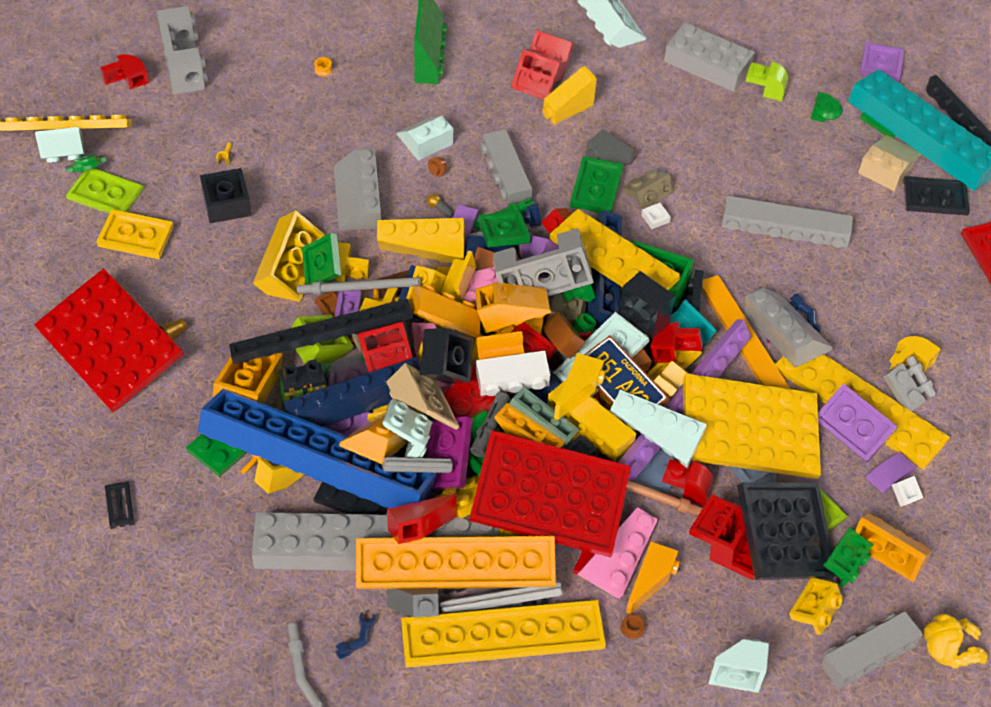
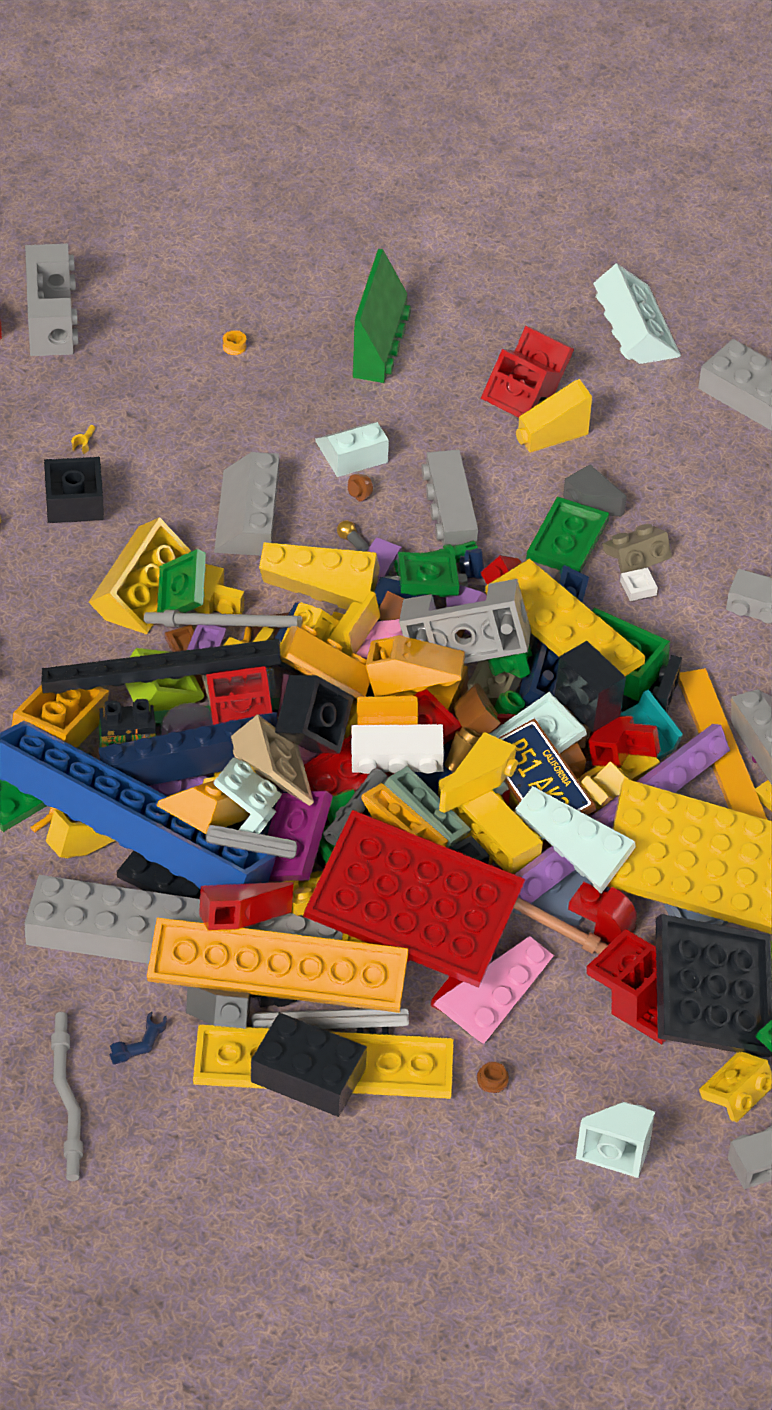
camera: 10 degrees right, 5 degrees down
(494, 641) = (308, 1064): none -> black brick
(561, 366) = (461, 746): none -> pearl gold cone
(653, 575) = (531, 1020): light orange slope -> none

